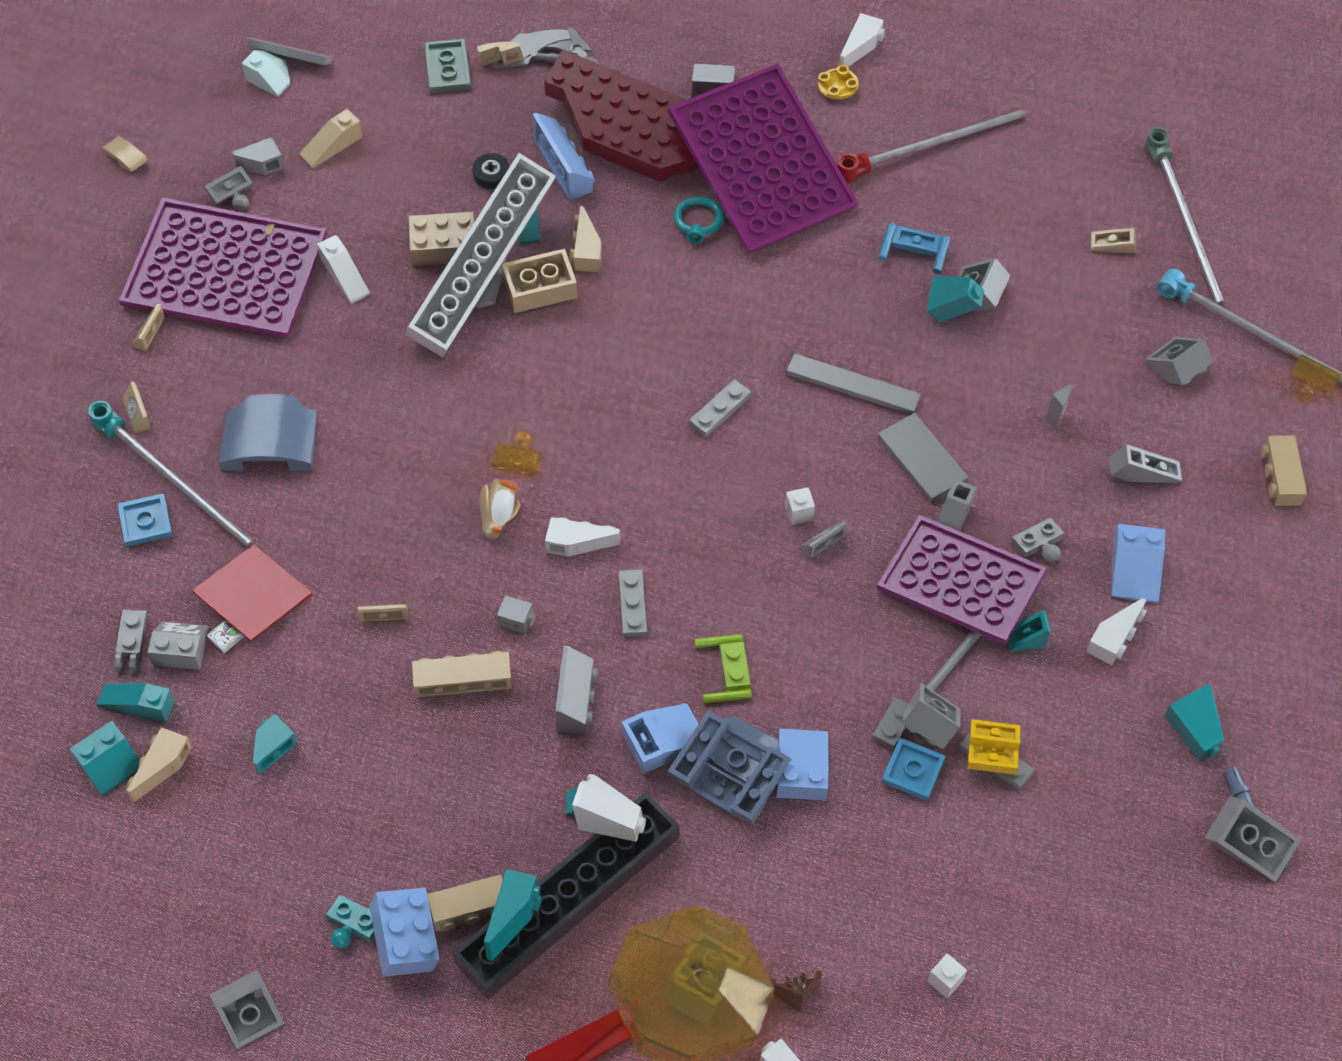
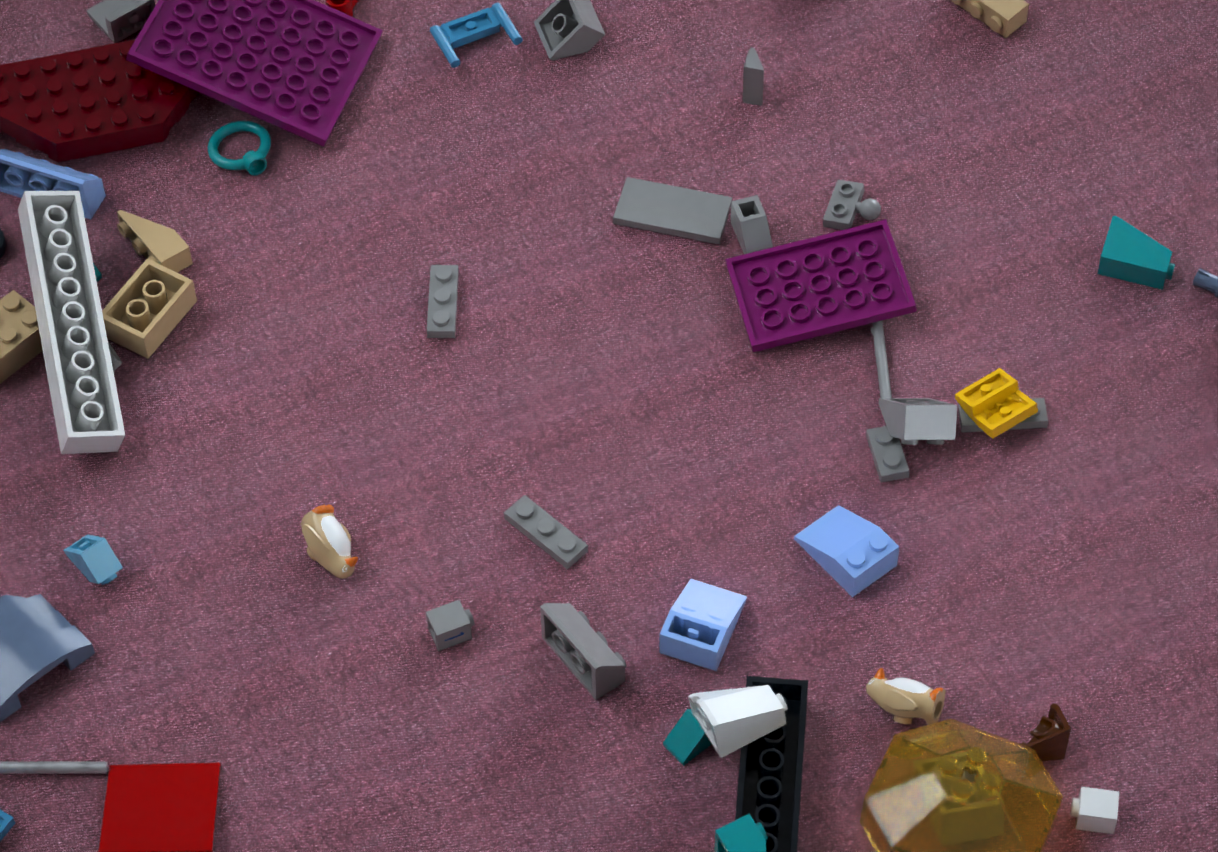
camera: 40 degrees left, 5 degrees down
(361, 413) = (94, 559): none -> medium azure slope
(383, 612) = (314, 723): tan slope -> none
(461, 674) = (455, 717): tan brick -> none
(517, 457) = (293, 486): clear yellow plate -> none
(575, 538) = (431, 514): white slope -> none
(730, 765) = (795, 596): sand blue slope -> none
(733, 665) = (697, 514): lime plate -> none
(735, 890) = (906, 698): none -> tan animal
(799, 506) = (612, 330): white brick -> none
(824, 539) = (660, 343): light grey slope -> none
(853, 384) = (543, 192): light grey tile -> none
(913, 769) = (946, 477): dark azure plate -> none
(947, 975) = (1155, 622): white brick -> none
(953, 297) = (562, 48): teal slope -> none
(1030, 633) = (927, 284): teal slope -> none
(1112, 633) = (993, 241): white slope -> none
(1137, 563) = (949, 163): light blue slope -> none
(1143, 466) = (869, 80): light grey slope -> none

